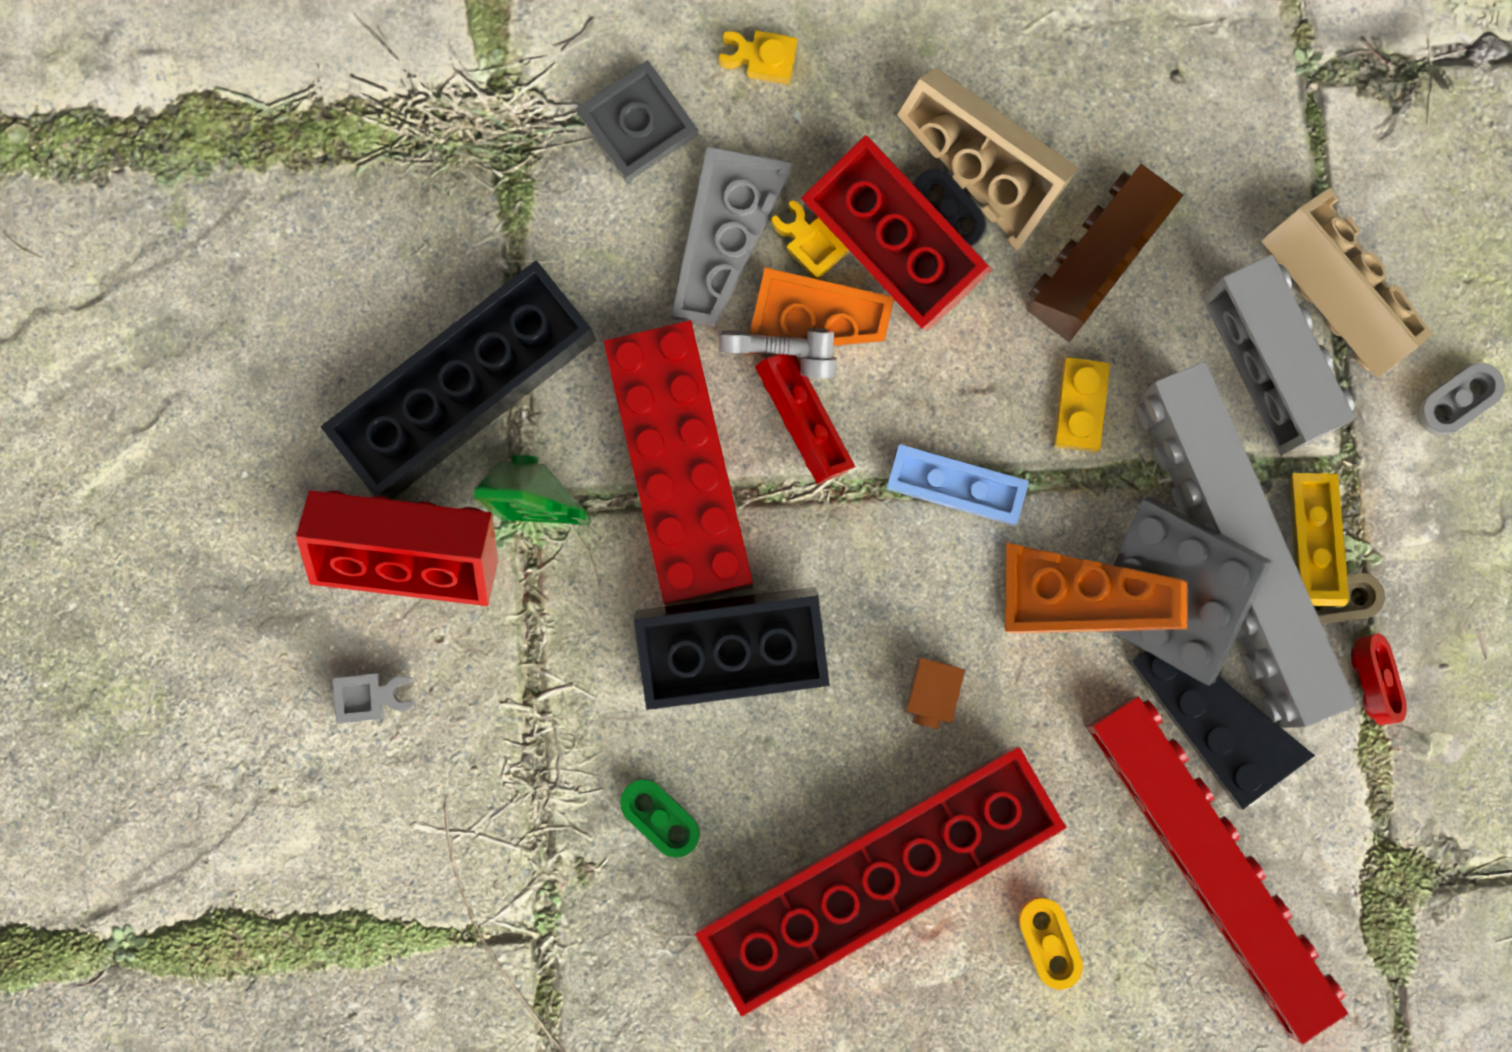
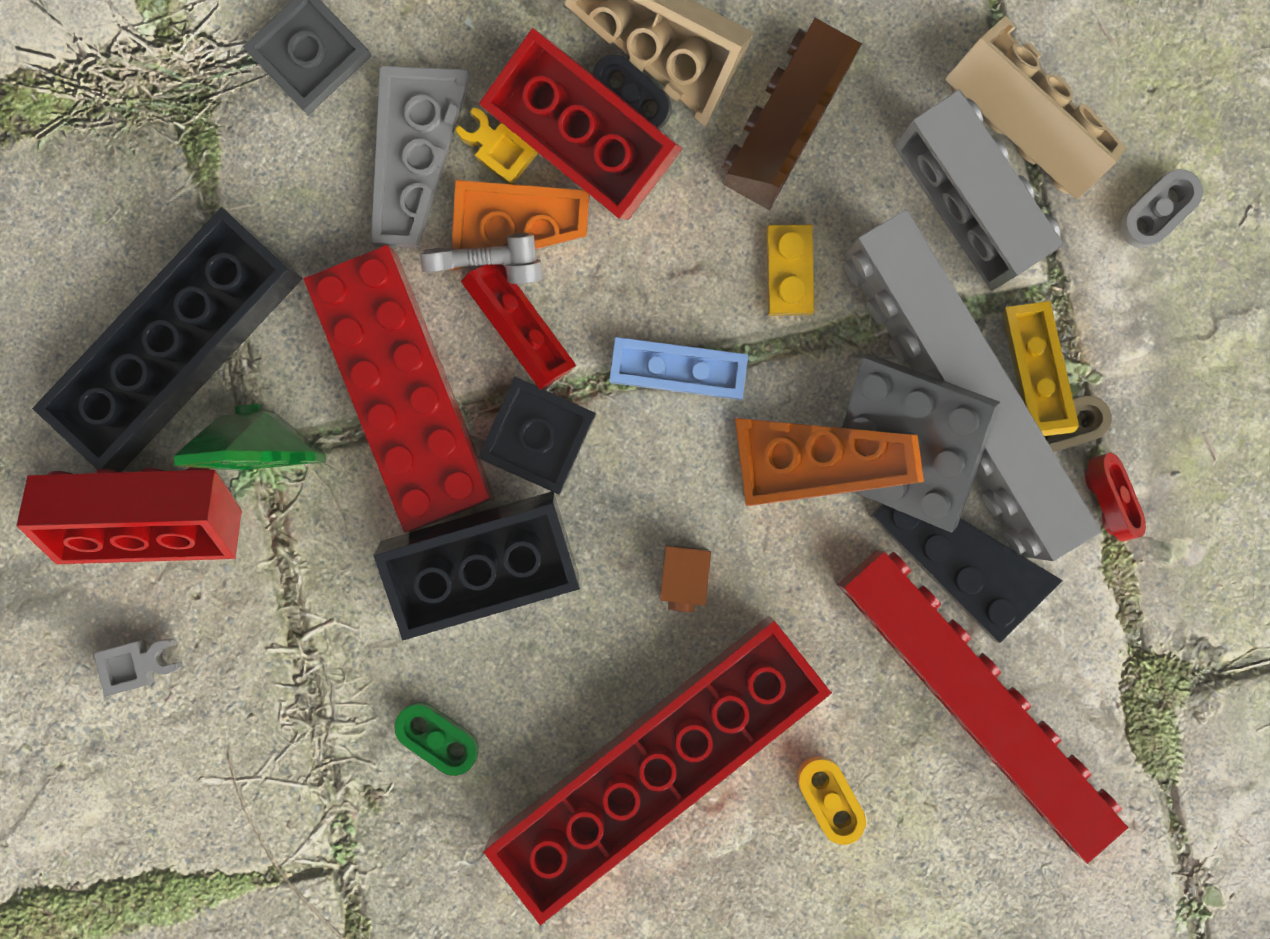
camera: 10 degrees left, 5 degrees up
(806, 530) = (537, 435): none -> black plate

